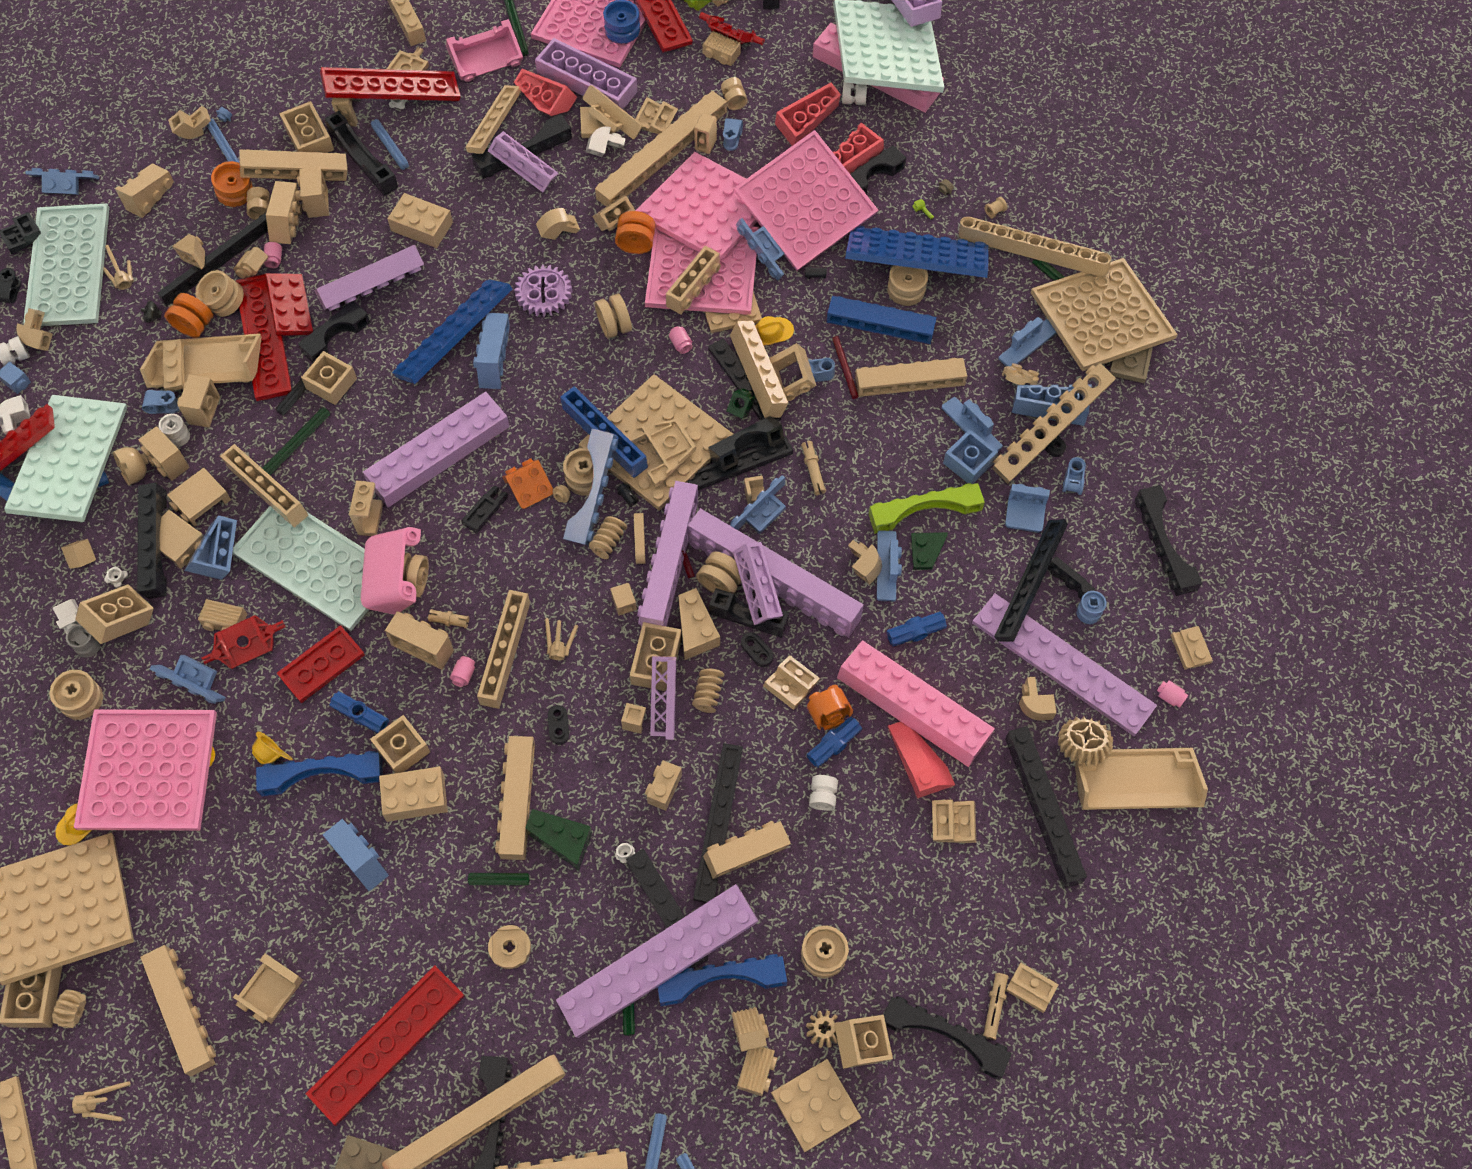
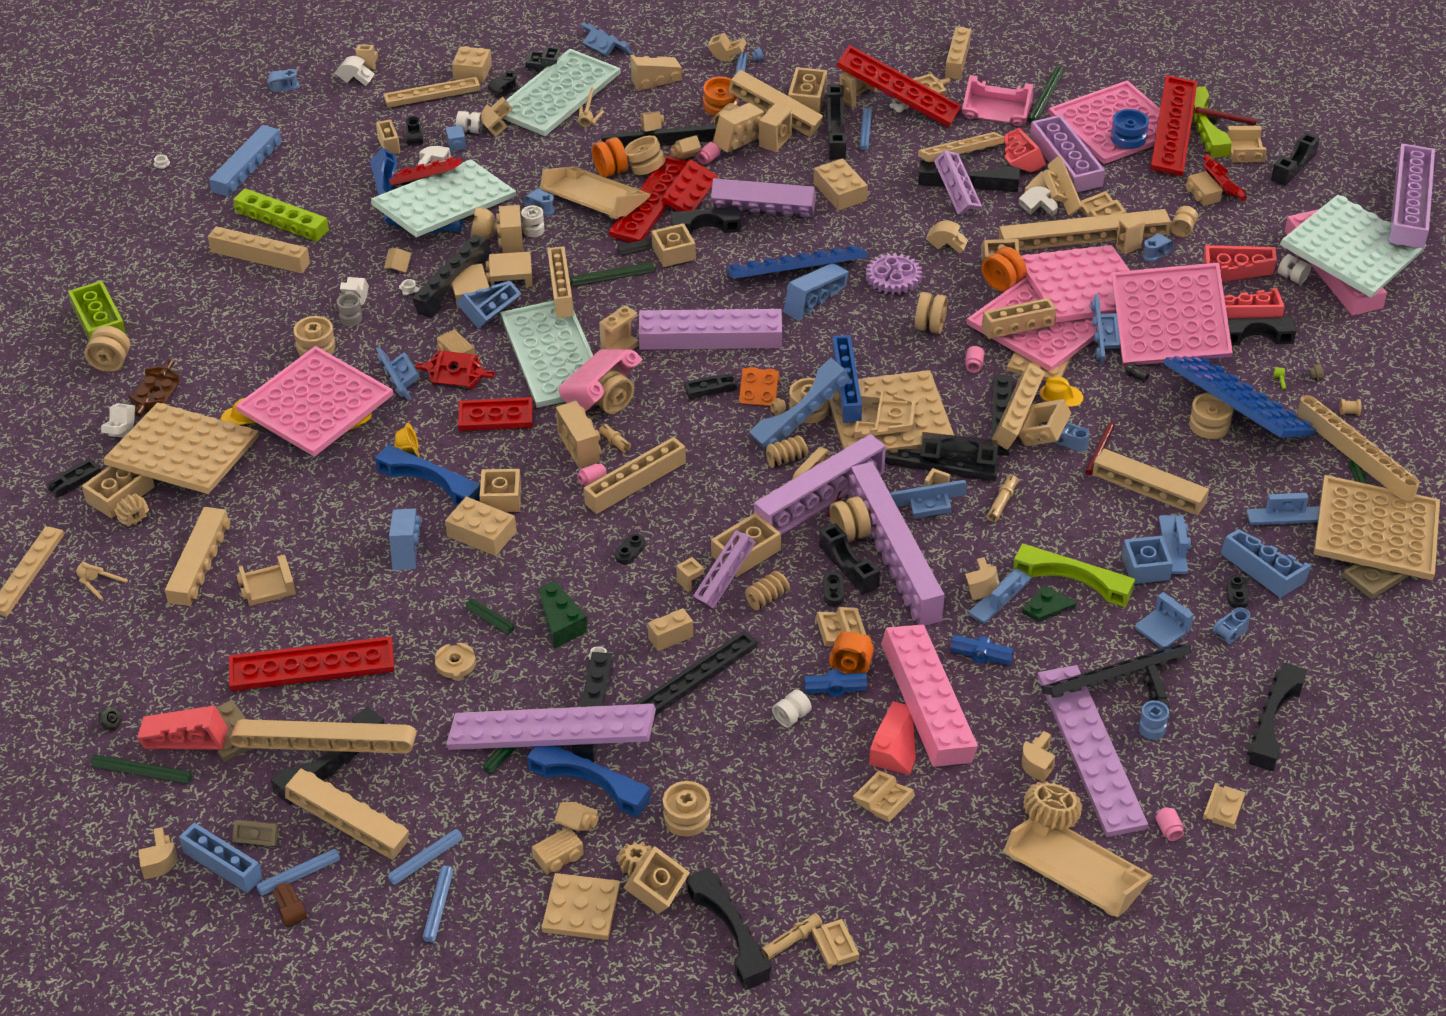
camera: 40 degrees right, 20 degrees down
(114, 613) = (383, 301): tan brick -> none
(151, 312) = (586, 146): pearl dark grey piece -> none
(173, 365) = (570, 181): tan plate -> none
(198, 400) = (566, 211): tan brick -> none
(349, 707) = (490, 452): blue piece -> none
(516, 798) = (558, 567): tan brick -> none
(557, 650) = (676, 500): tan plant -> none
(623, 599) = (757, 491): tan panel -> none
(625, 491) = (830, 432): black pin -> none
(696, 624) = (797, 544): tan wedge -> none
(734, 407) = (981, 422): dark green brick -> none
(747, 849) = (692, 704): tan brick -> none
(760, 581) = (870, 531): lavender fence -> none
(881, 319) = (1163, 431): blue brick -> none
(1020, 376) = (1251, 527): tan plate -> none
(1045, 807) = (970, 831): black brick -> none
(1103, 380) = (1235, 577): tan brick -> none

